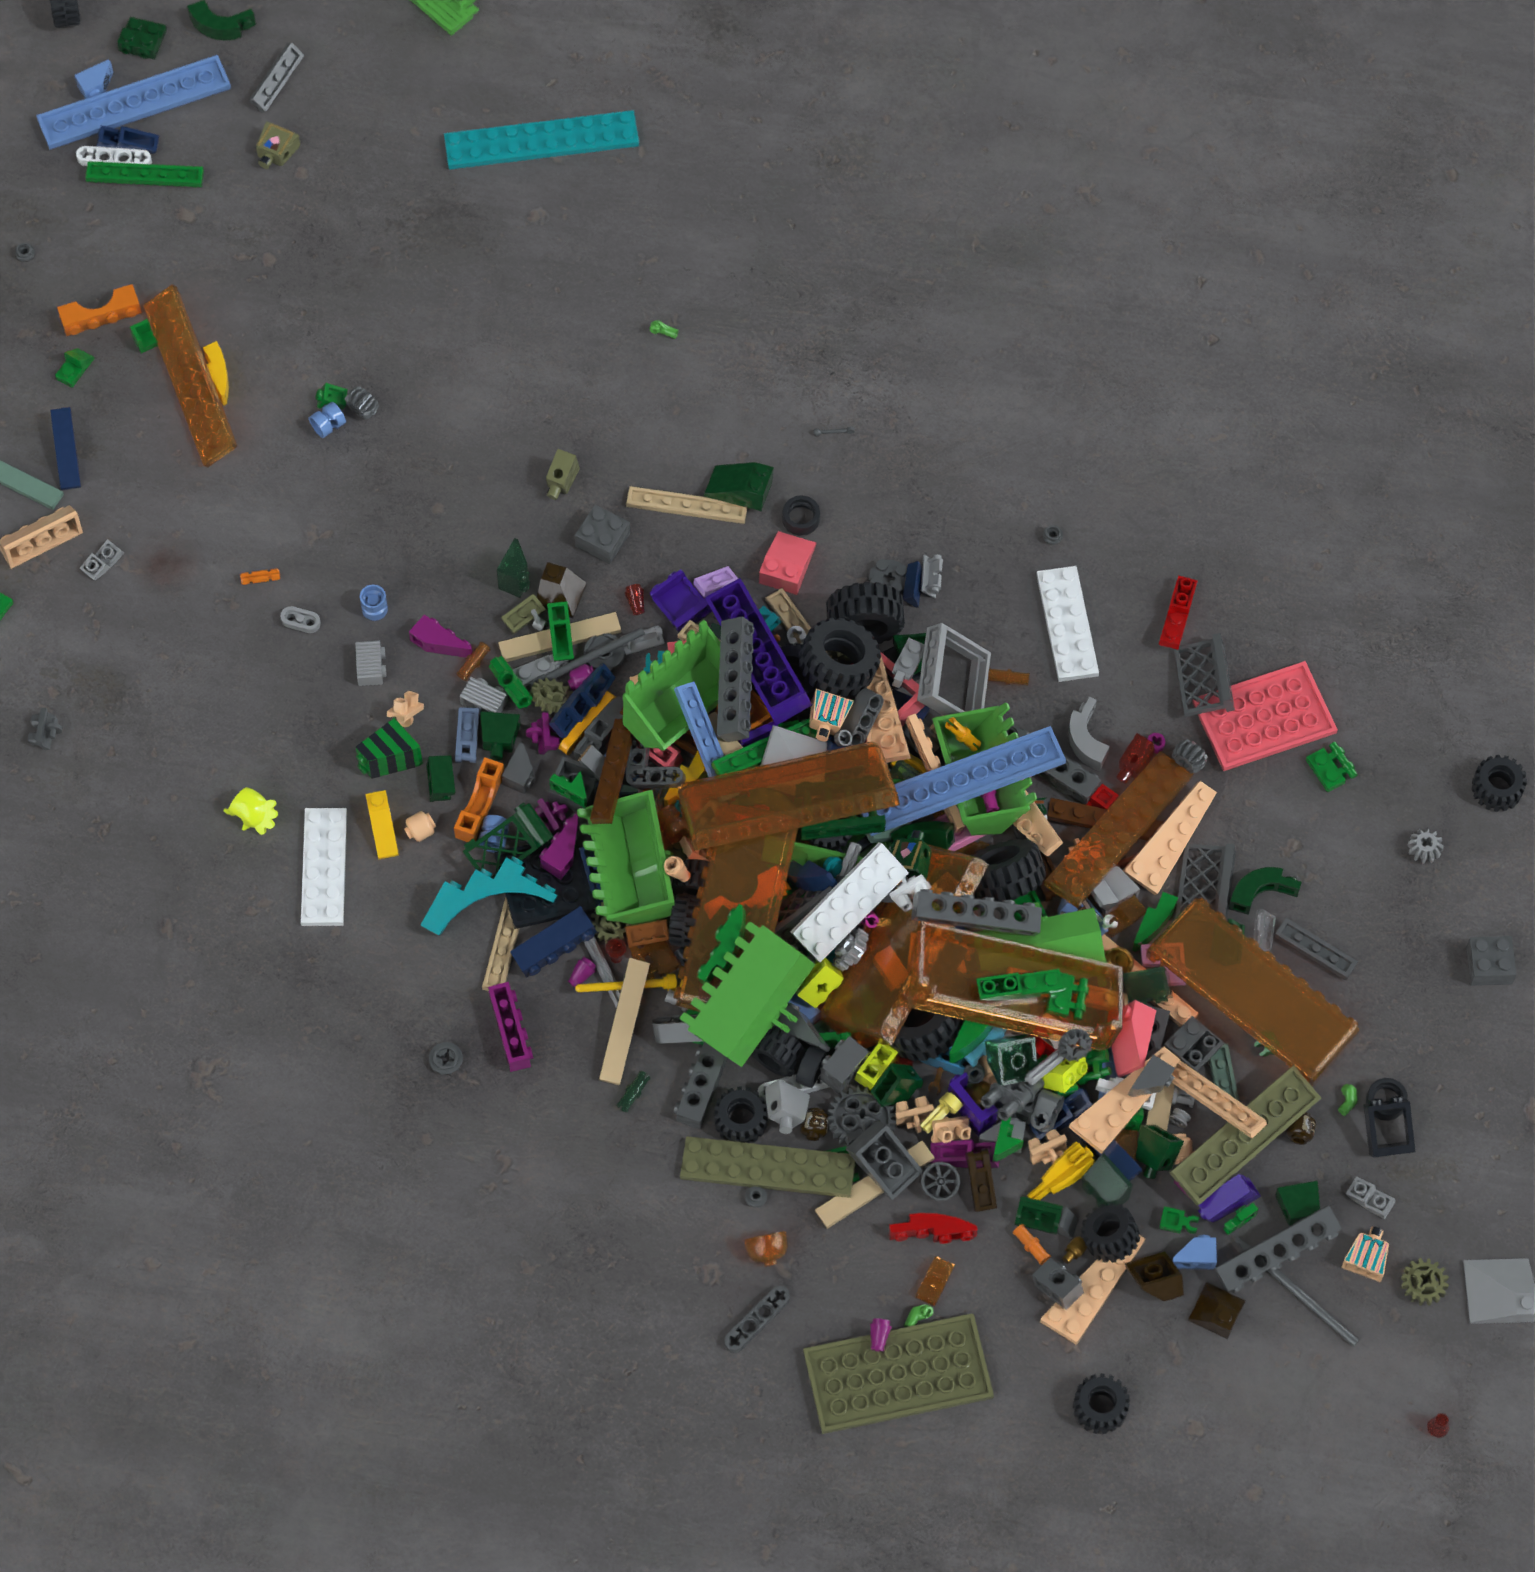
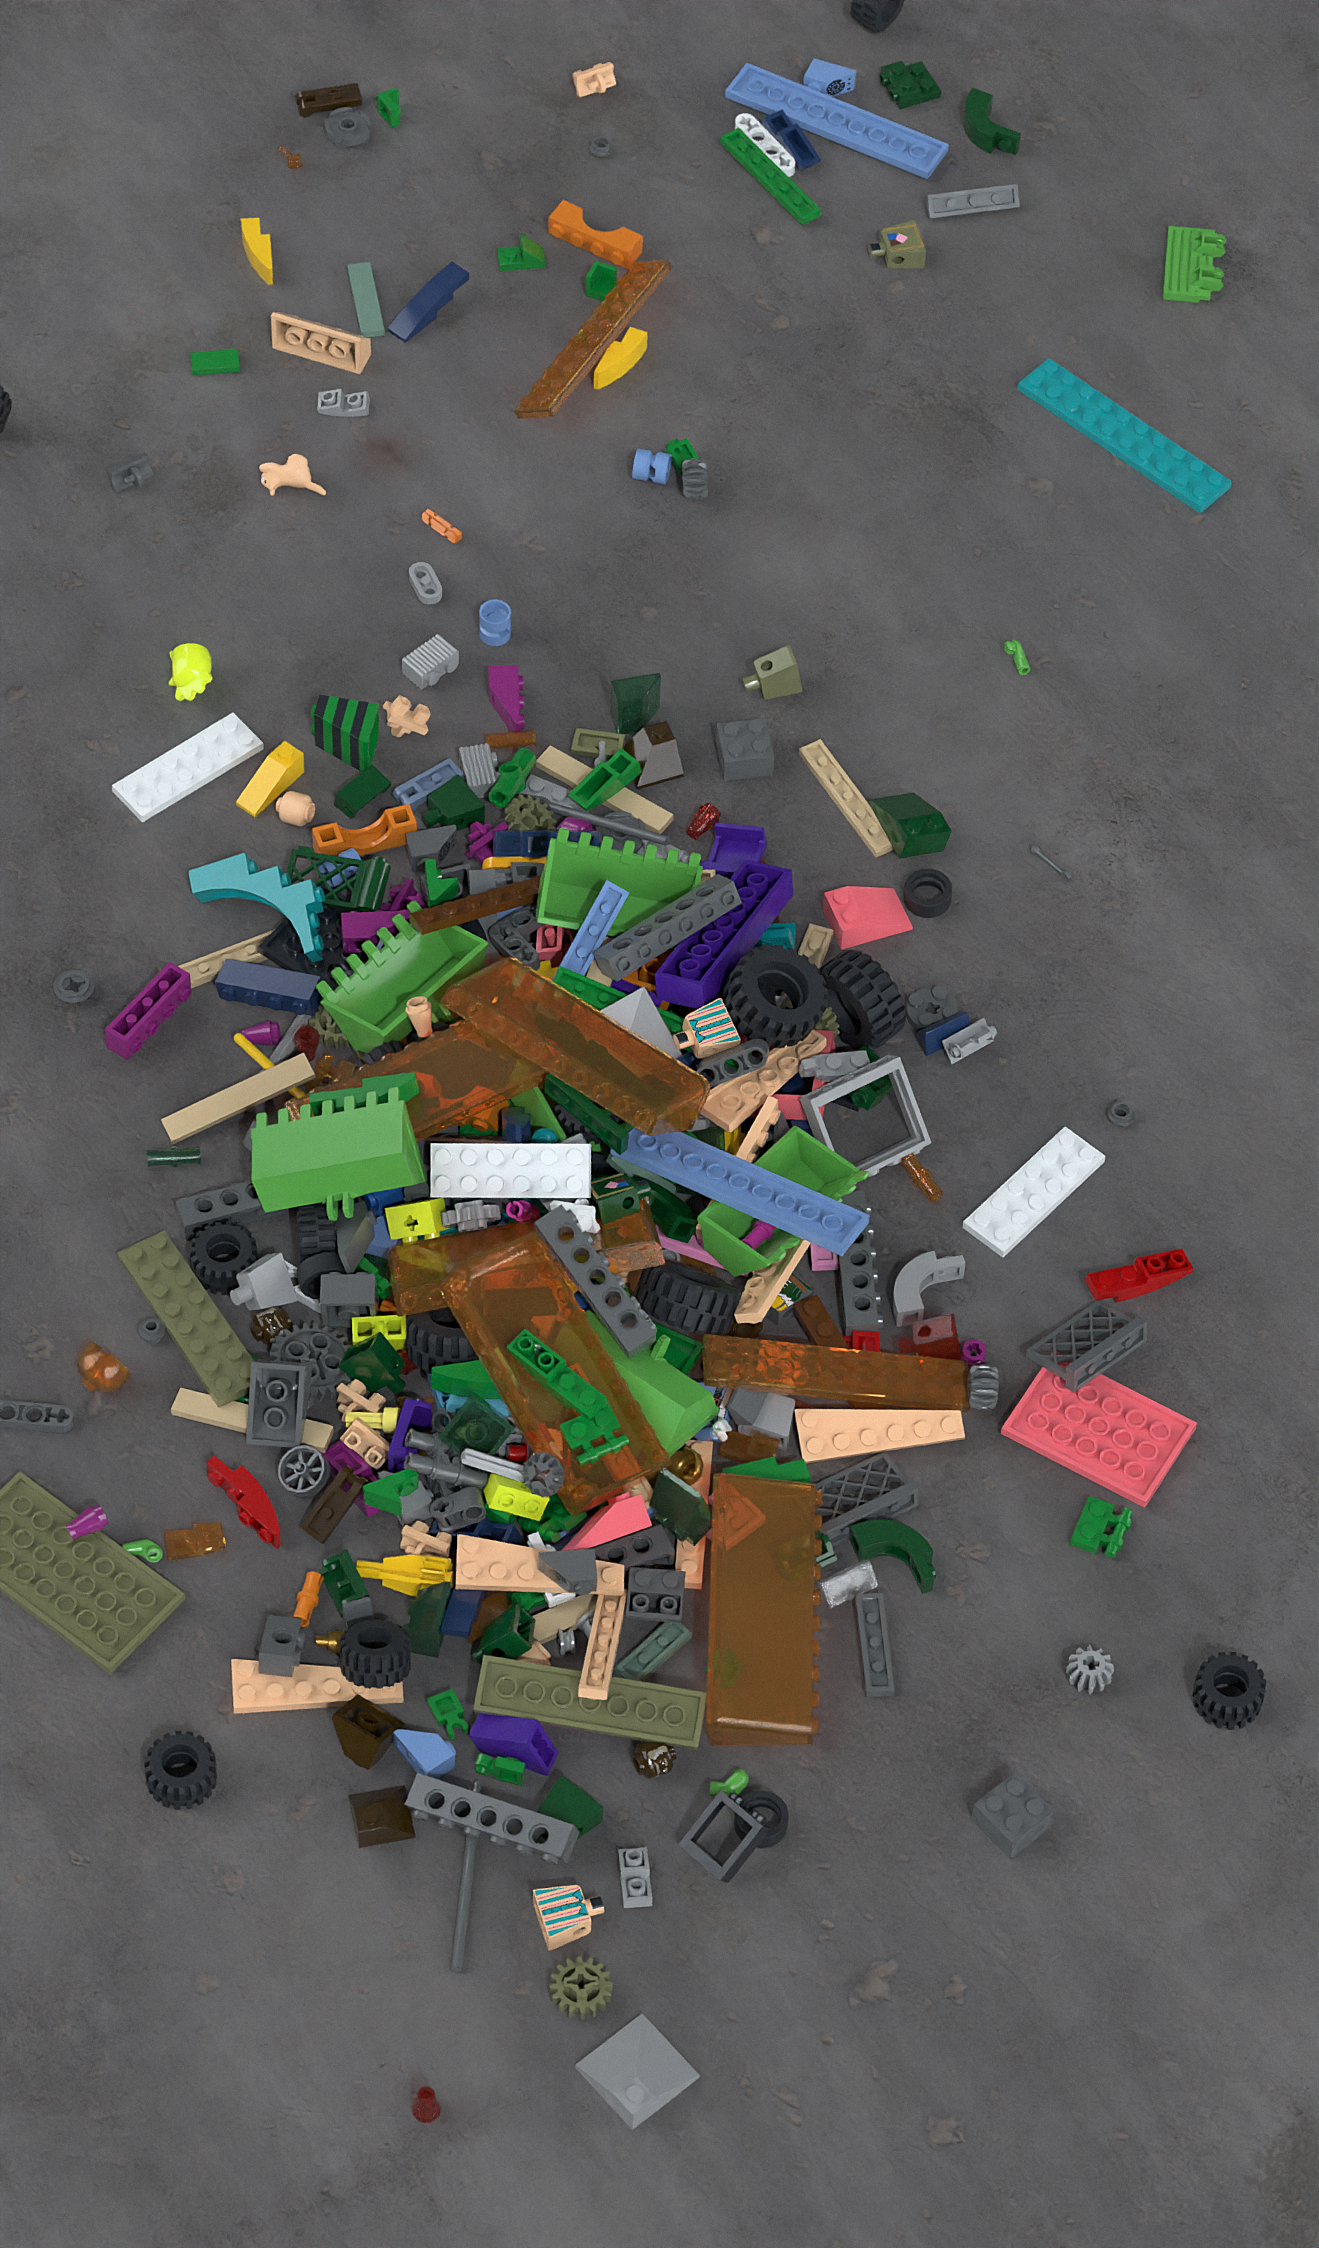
camera: 50 degrees right, 10 degrees down
(139, 631) = (293, 474): none -> light nougat animal
(647, 932) = (343, 1050): dark orange plate -> none
(714, 581) = (800, 873): lavender plate -> none
(843, 734) = (698, 1056): dark grey hinge -> none
(963, 734) = (805, 1165): light orange pin -> none

